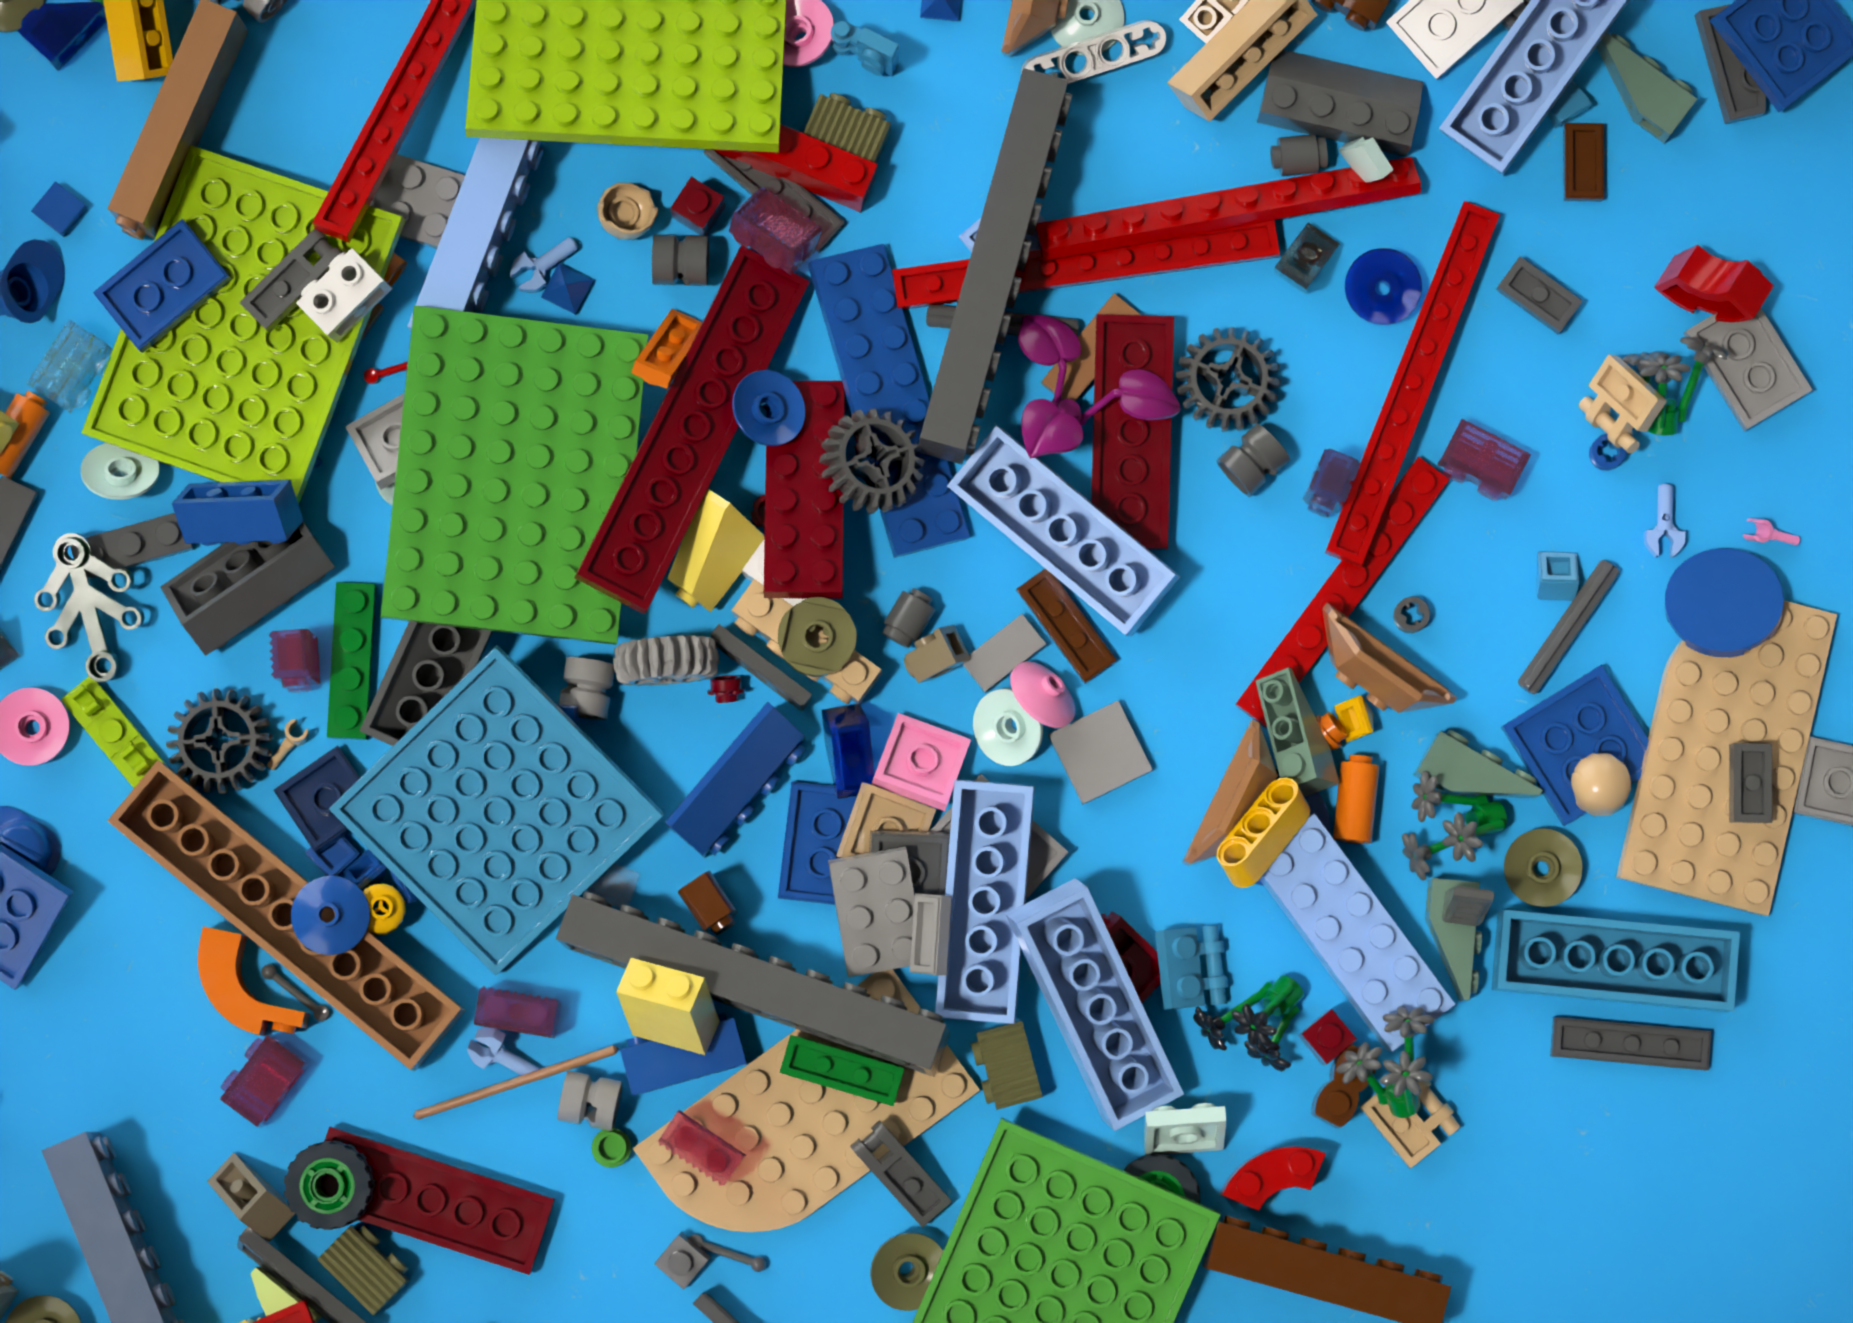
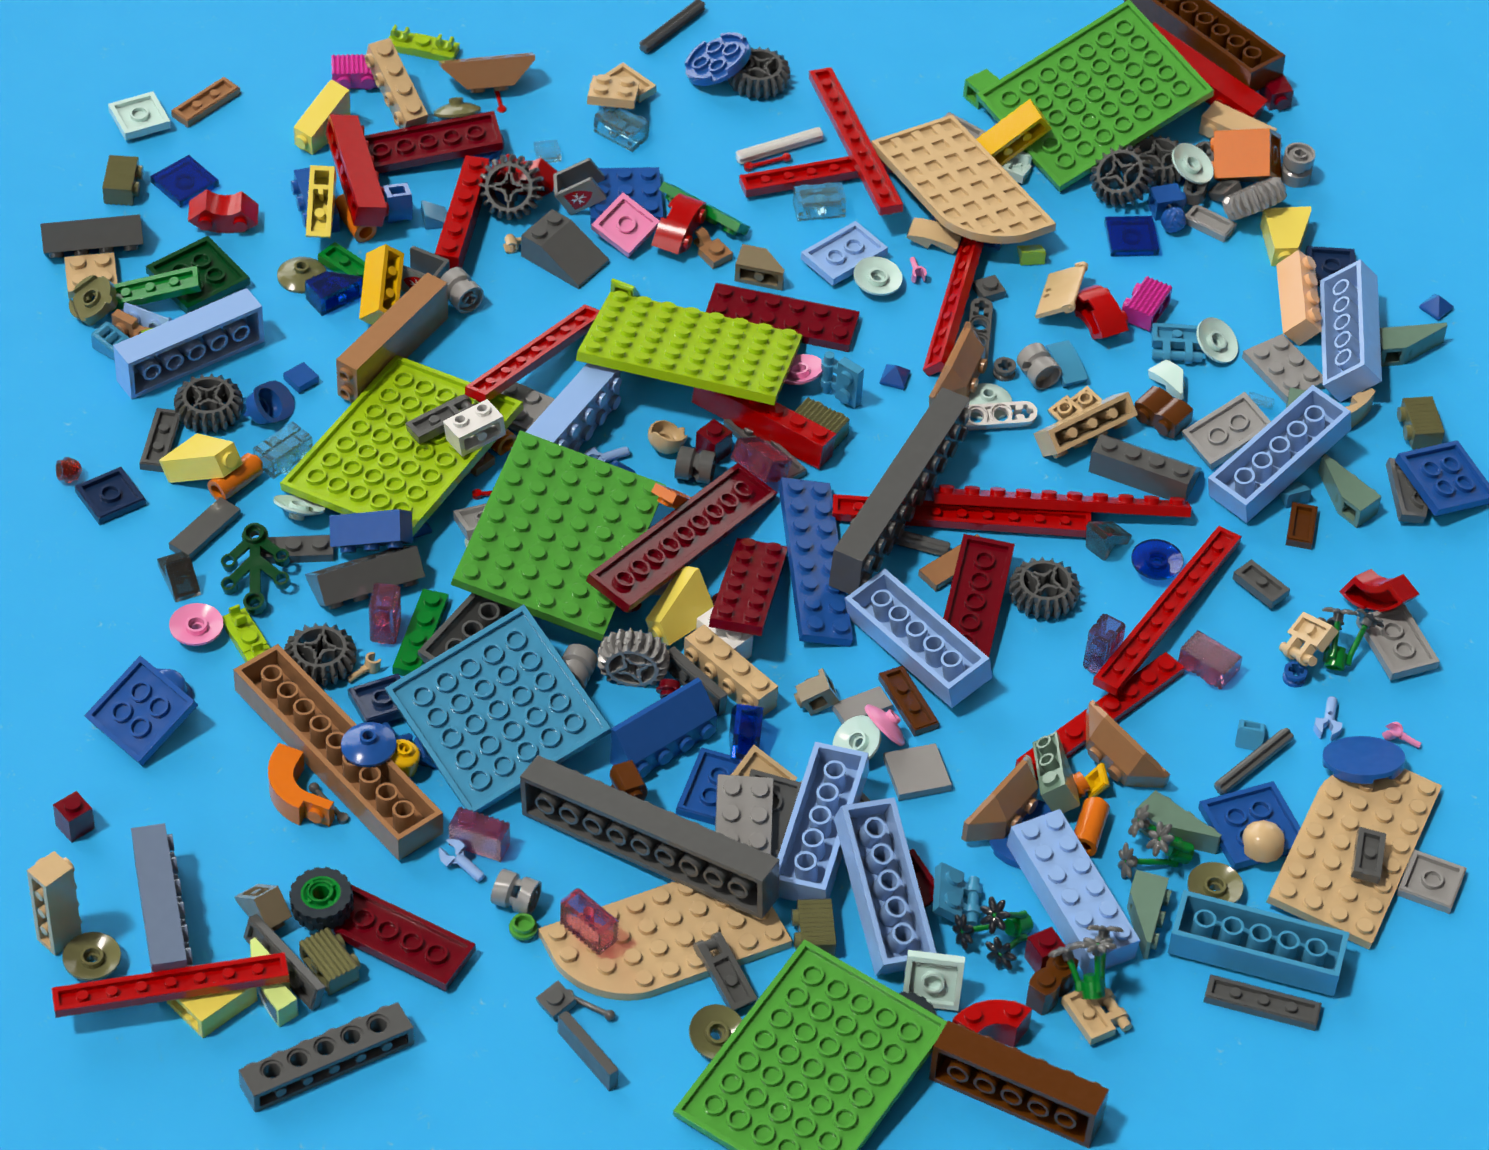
camera: 10 degrees right, 35 degrees down
(162, 285) = (356, 415): blue tile -> none
(263, 1080) = (292, 842): clear pink brick -> none
(516, 1082) = (466, 875): medium nougat axle -> none
(658, 1065) = (600, 879): blue brick -> none
(668, 1006) = (587, 827): light yellow brick -> none
(779, 398) = (735, 536): blue dish -> none
(804, 618) = (739, 665): olive plate -> none
(841, 1070) = (698, 901): green plate -> none
(877, 491) = (798, 571): dark grey gear -> none
(908, 617) = (801, 670): dark grey brick -> none
(921, 762) = (789, 747): bright pink plate -> none
(930, 934) = (778, 828): light grey tile -> none
(1057, 424) = (931, 582): magenta plant -> none
(1253, 460) = (1053, 630): dark grey wheel -> none
(1263, 832) = (1022, 807): yellow beam -> none
(1299, 154) = (1113, 484): dark grey brick -> none
(1366, 159) = (1156, 482): light aqua slope -> none
(1422, 610) = (1151, 730): dark grey bush -> none
(1466, 905) = (1157, 874): dark grey slope -> none

